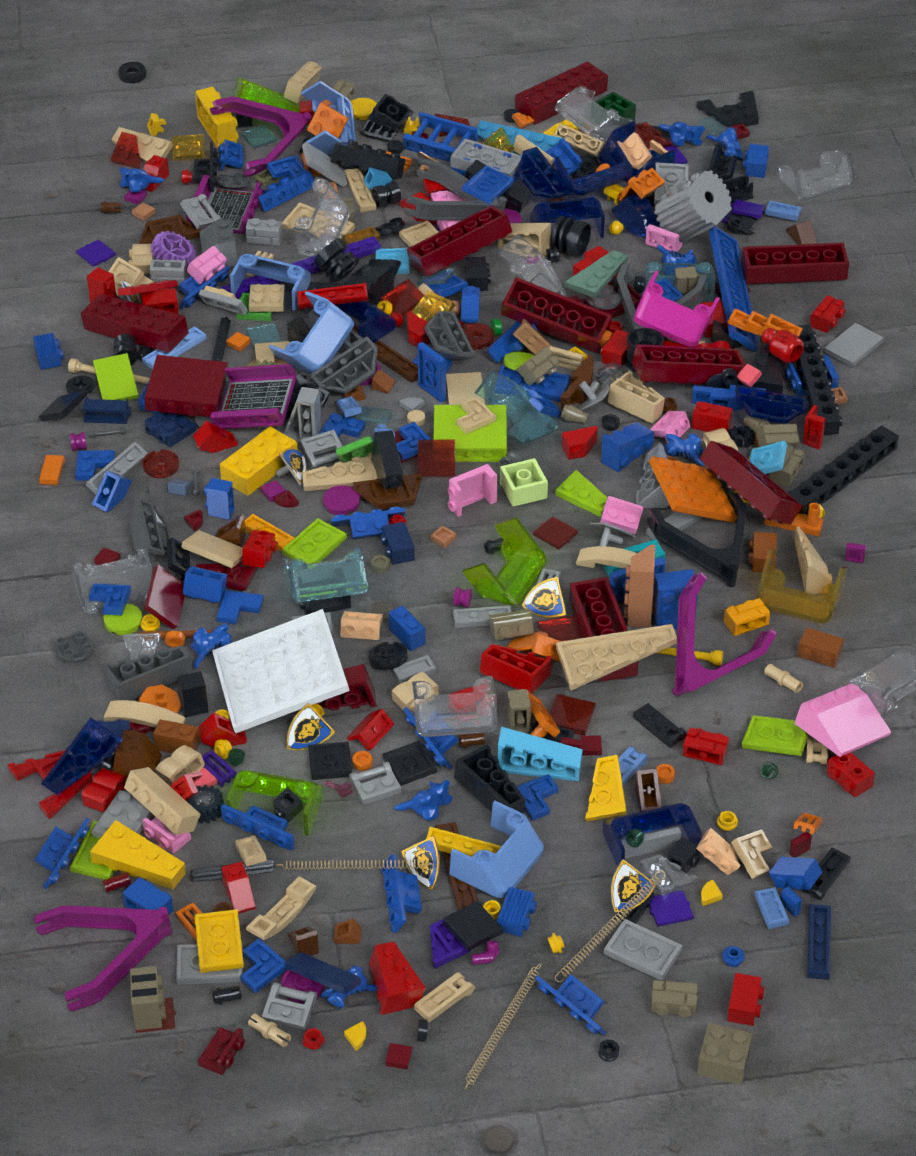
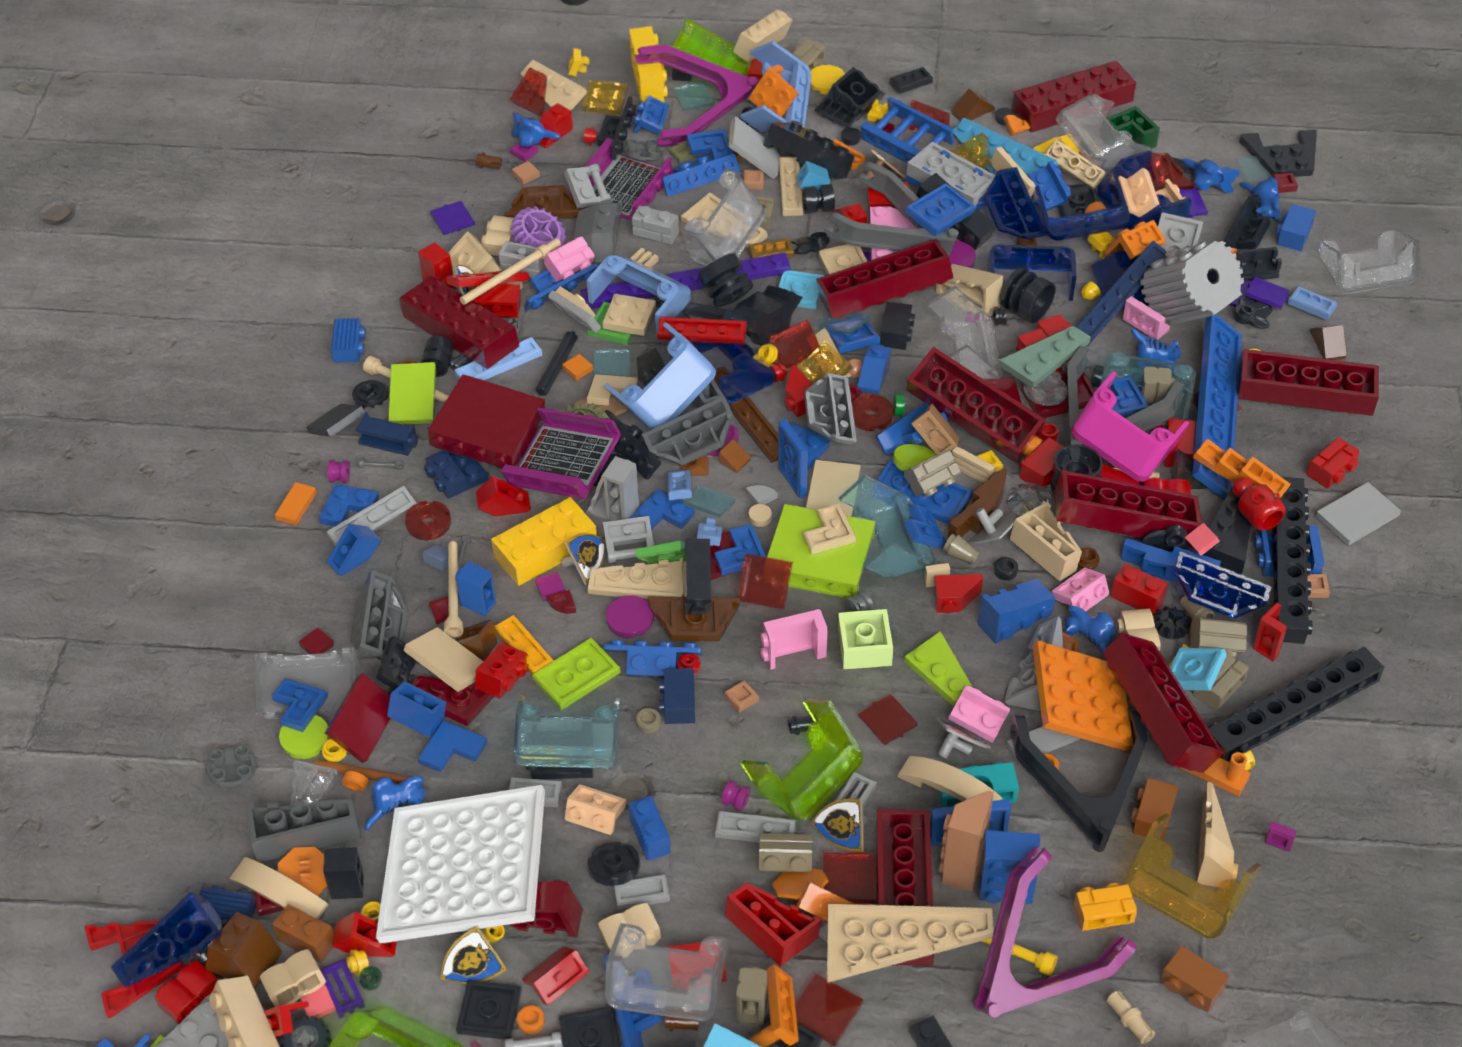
camera: 15 degrees right, 5 degrees up
(183, 263) = (540, 253): none -> tan bar
(210, 526) = (453, 625): none -> tan piece
(429, 99) = (911, 80): none -> black plate
(483, 111) = (971, 106): none -> reddish brown slope
(557, 432) = (934, 570): none -> tan tile
(641, 221) = (1122, 290): none -> dark blue tile

